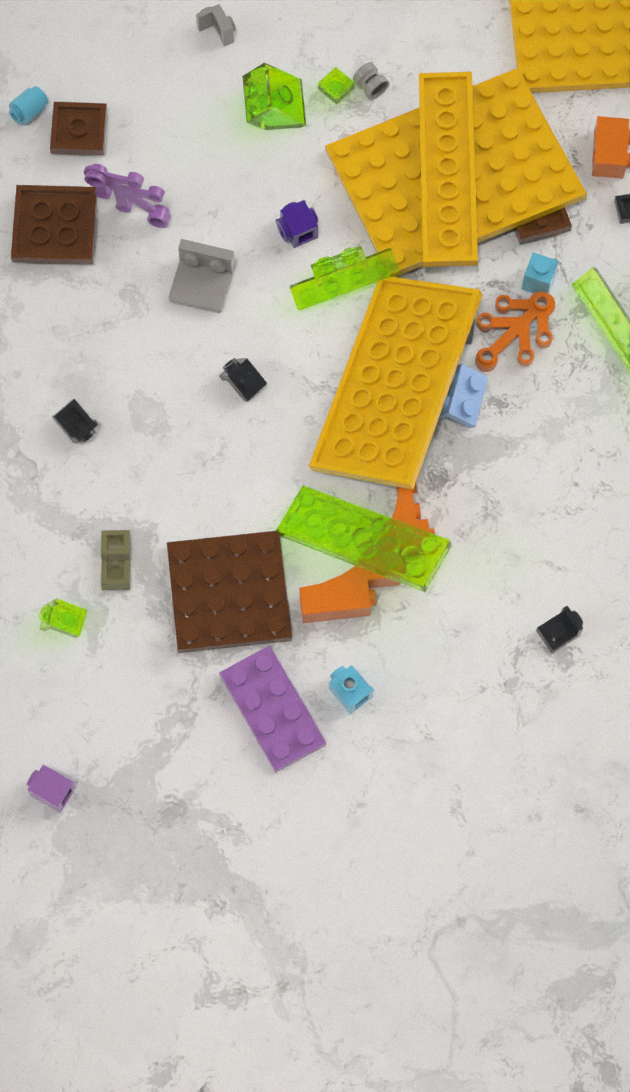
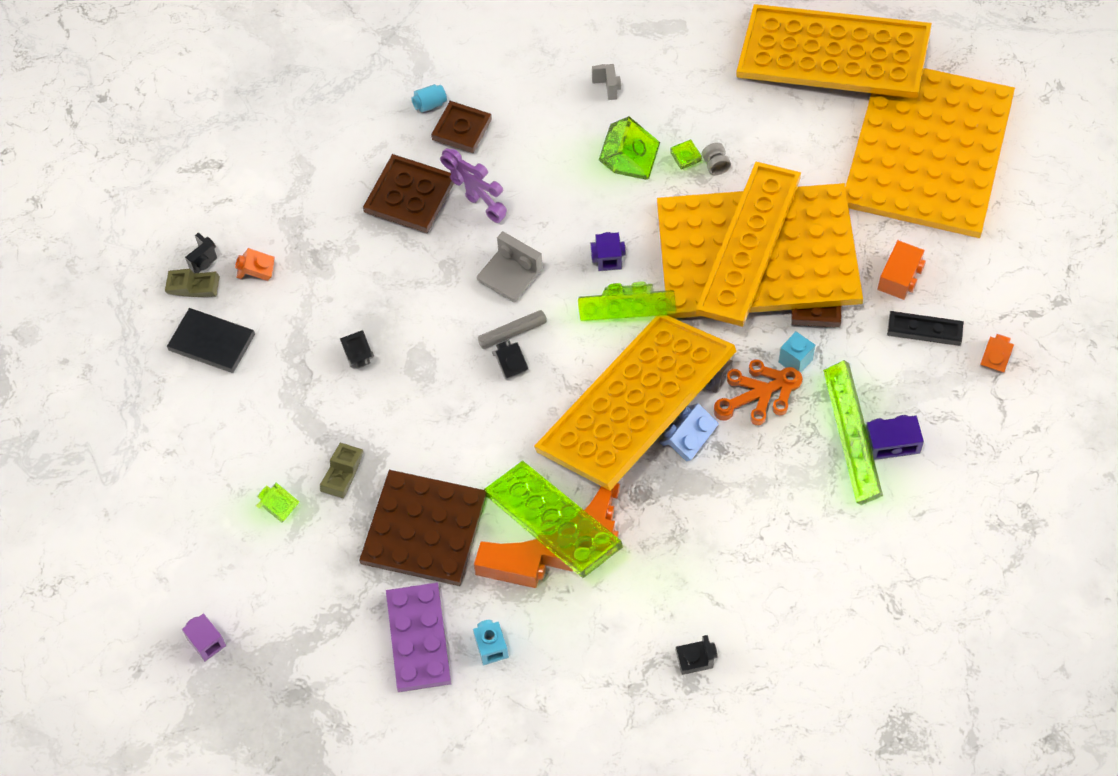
camera: 25 degrees right, 10 degrees down
(230, 344) = (512, 329): none -> light grey axle

